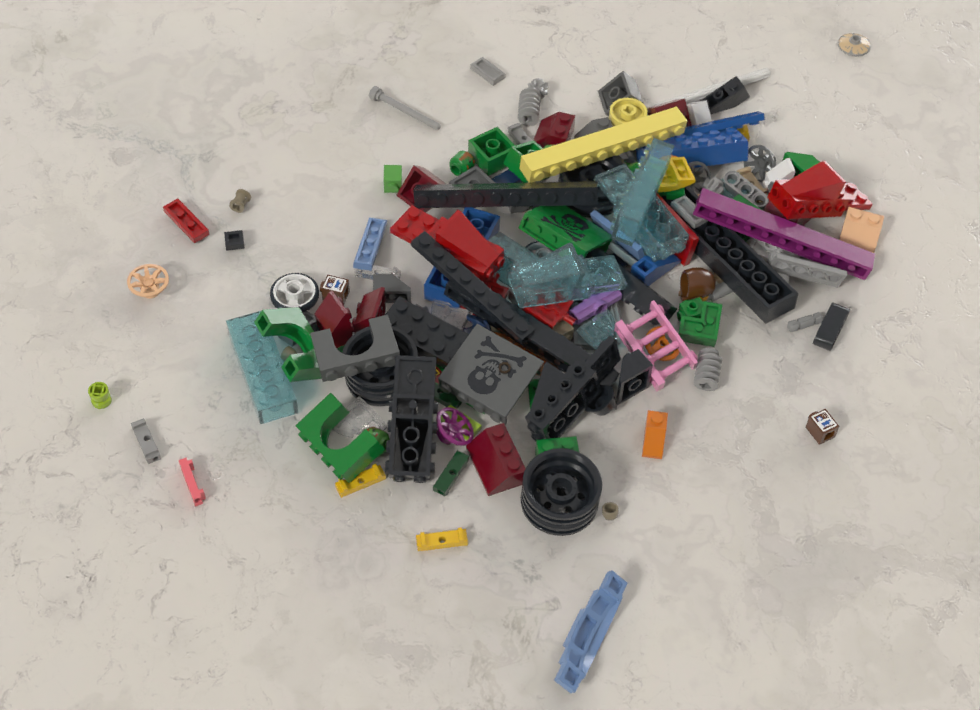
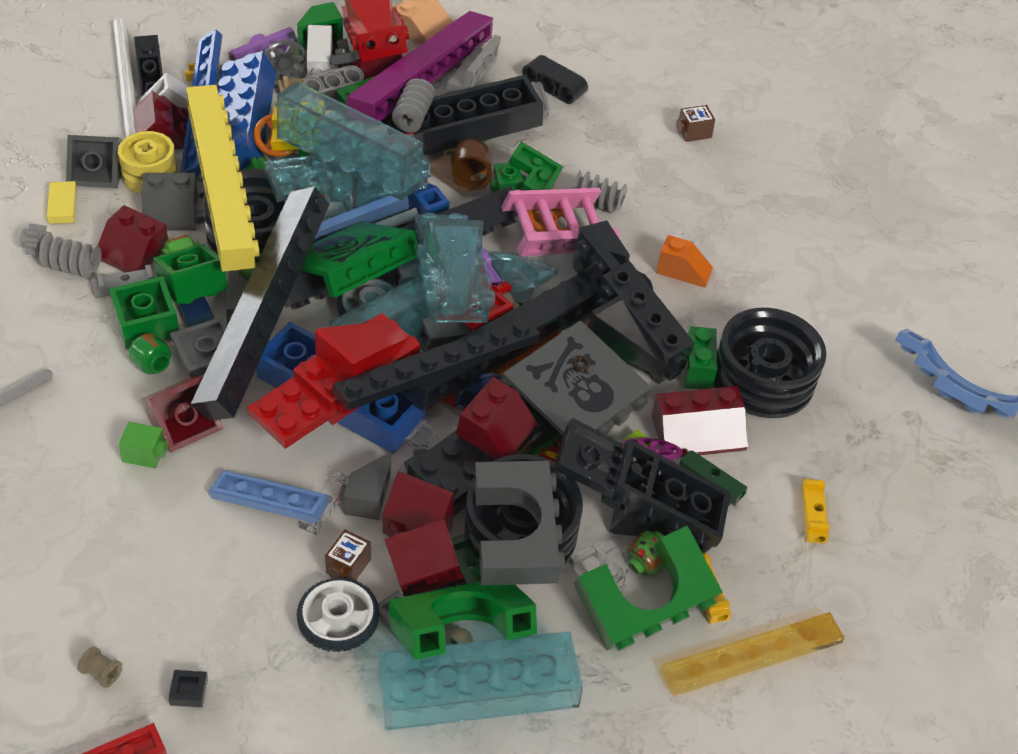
camera: 80 degrees left, 5 degrees down
(316, 512) = (751, 653): none -> clear yellow tile
(438, 329) = (496, 420): none -> dark red slope
(580, 93) = (61, 202): none -> light yellow tile
(723, 230) = (413, 105): none -> light grey piece
(777, 147) = (261, 43): none -> medium lavender piece

